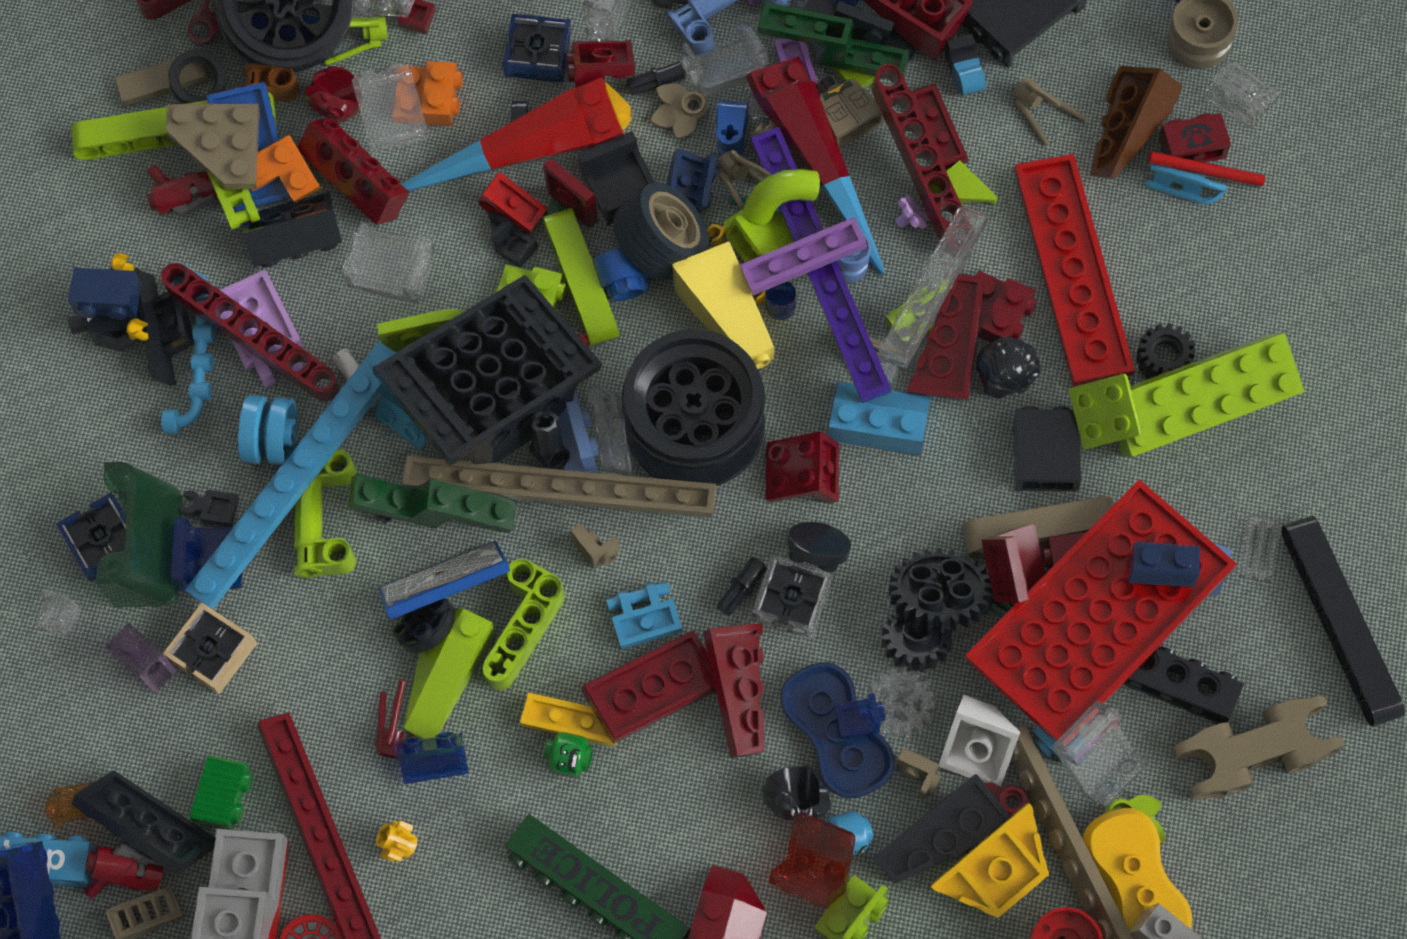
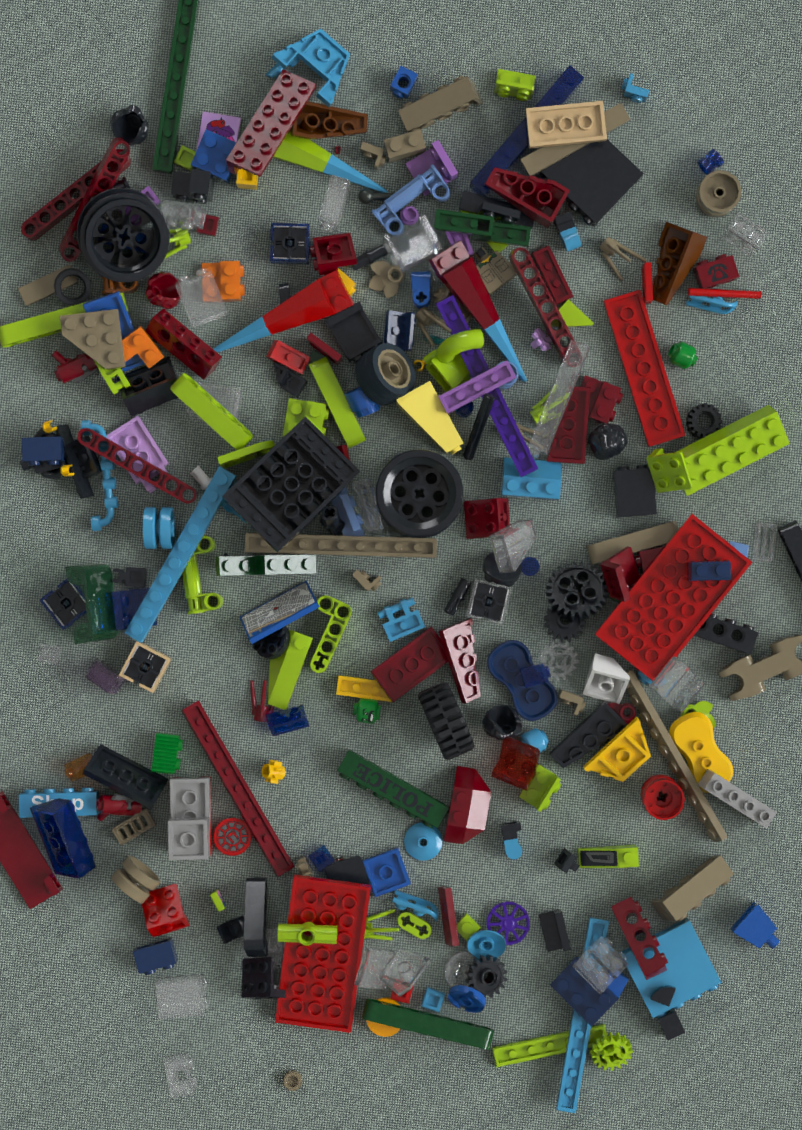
camera: 10 degrees left, 20 degrees up
(378, 261) = (211, 411): none -> lime beam
(699, 770) = (446, 721): none -> black tyre
(724, 26) = (409, 215): none -> medium lavender plate
(800, 321) = (478, 427): none -> black axle
(838, 503) = (512, 544): none -> clear slope
(865, 550) = (530, 566): none -> clear blue plate
(1085, 146) = (647, 282): none -> red tile
(1135, 252) = (682, 355): none -> green head

